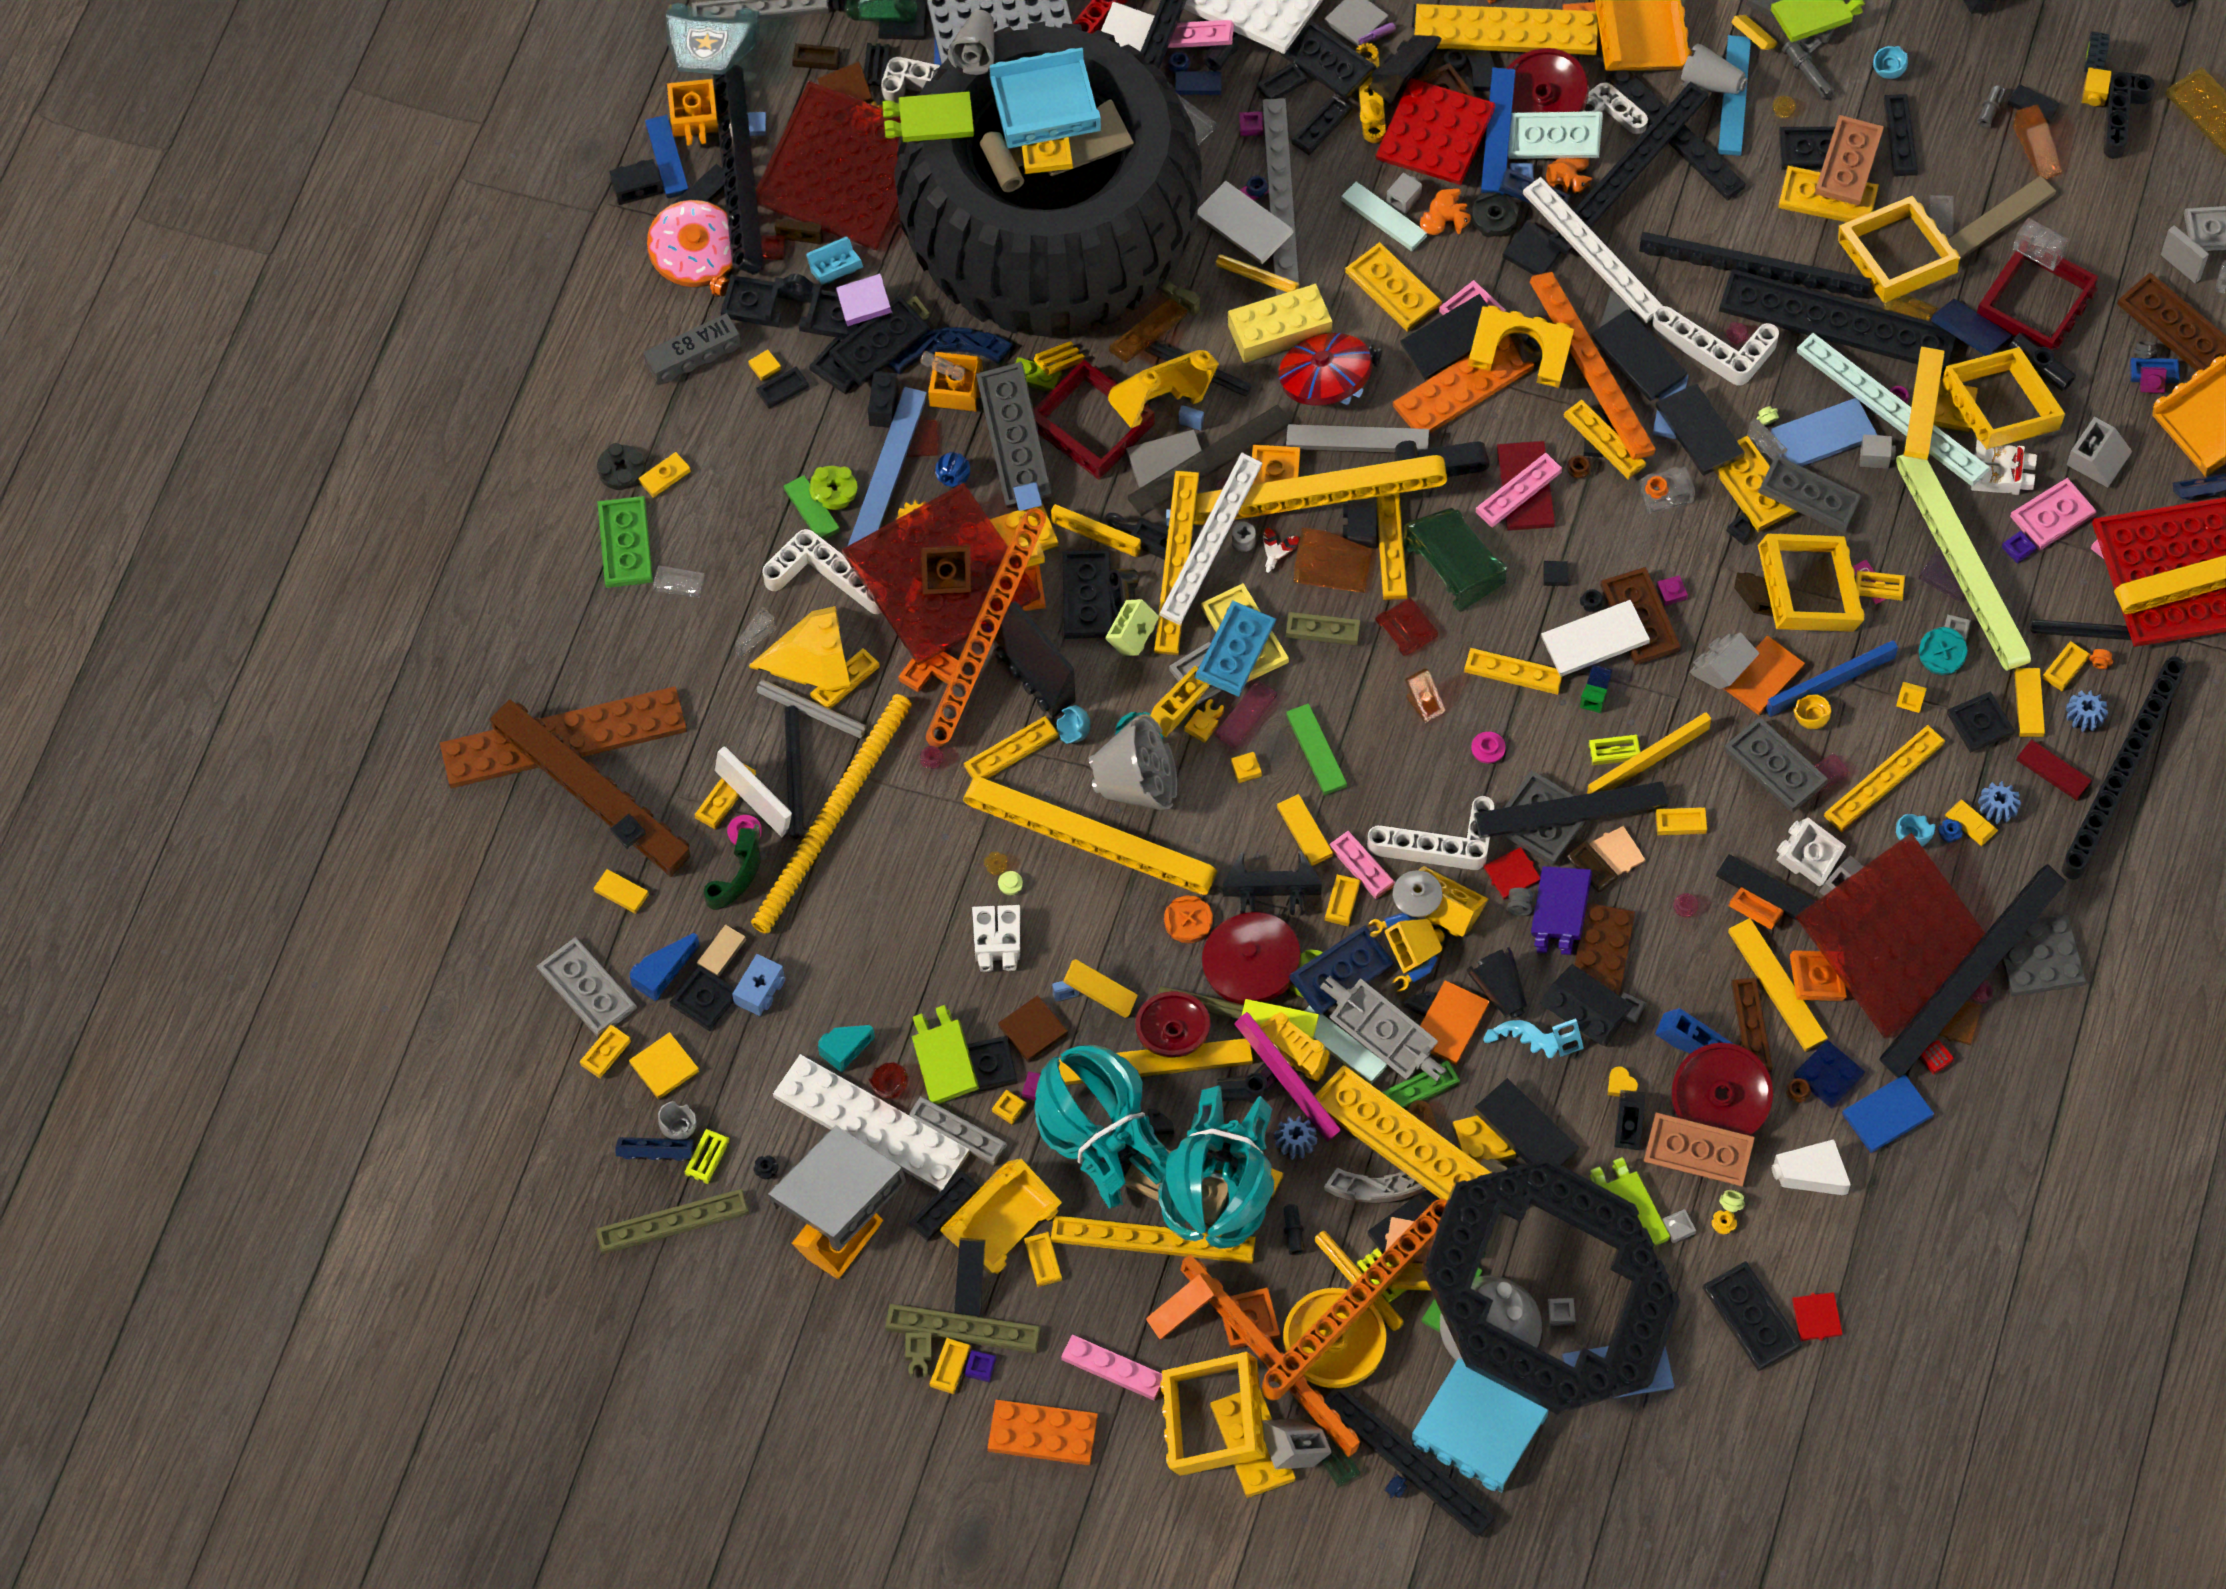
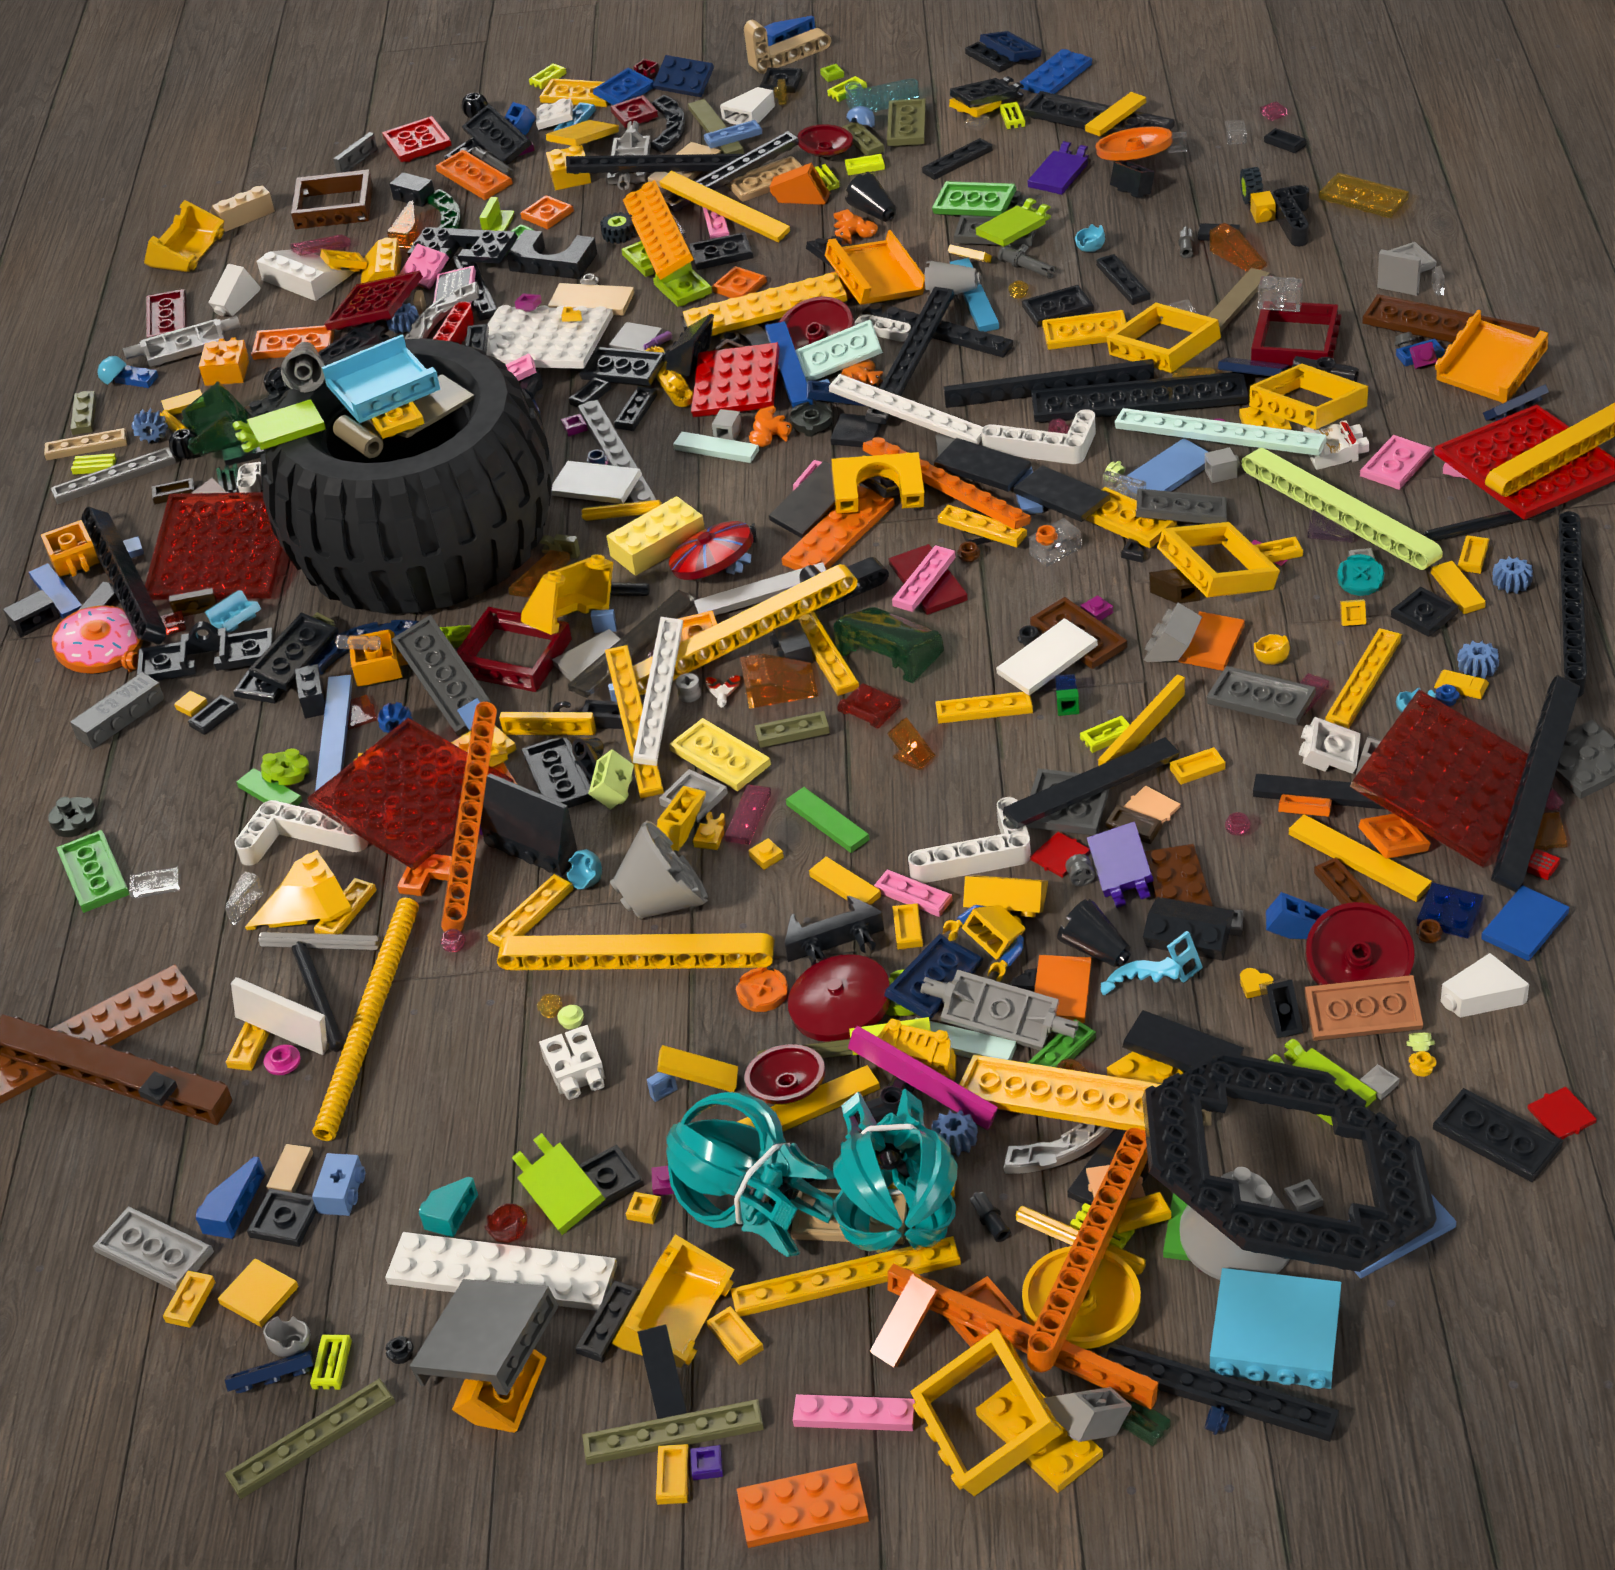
camera: 15 degrees left, 20 degrees down
(621, 891) = (167, 1152): yellow tile -> none
(664, 474) = (117, 809): yellow plate -> none
(707, 42) = (72, 496): clear light blue wedge -> none
(749, 858) = (276, 1117): dark green panel -> none
(863, 300) = (269, 624): tile -> none
(918, 1349) = (631, 1470): olive plate -> none
(945, 569) = (413, 779): reddish brown slope -> none
(968, 1135) = (626, 1249): light grey tile -> none
(1032, 1028) = (640, 1131): reddish brown tile -> none
(1056, 355) = (463, 616): yellow tile -> none
(1235, 648) = (716, 762): dark azure tile -> none
(1393, 286) = (745, 488): yellow tile -> none
(1415, 903) = (980, 884): light grey dish -> none
(1488, 747) = (989, 767): dark pink piece -> none
(1555, 573) = (985, 628): black tile -> none
(1832, 677) = (1275, 620): blue tile -> none
(1849, 160) = (1091, 299): nougat plate -> none
(1924, 403) = (1245, 416): yellow tile -> none
(2018, 547) = (1381, 491): dark purple tile -> none
(2054, 770) = (1510, 625): dark red tile -> none
(2099, 452) = (1410, 408): light grey slope -> none
(2101, 658) = (1501, 538): orange plate -> none

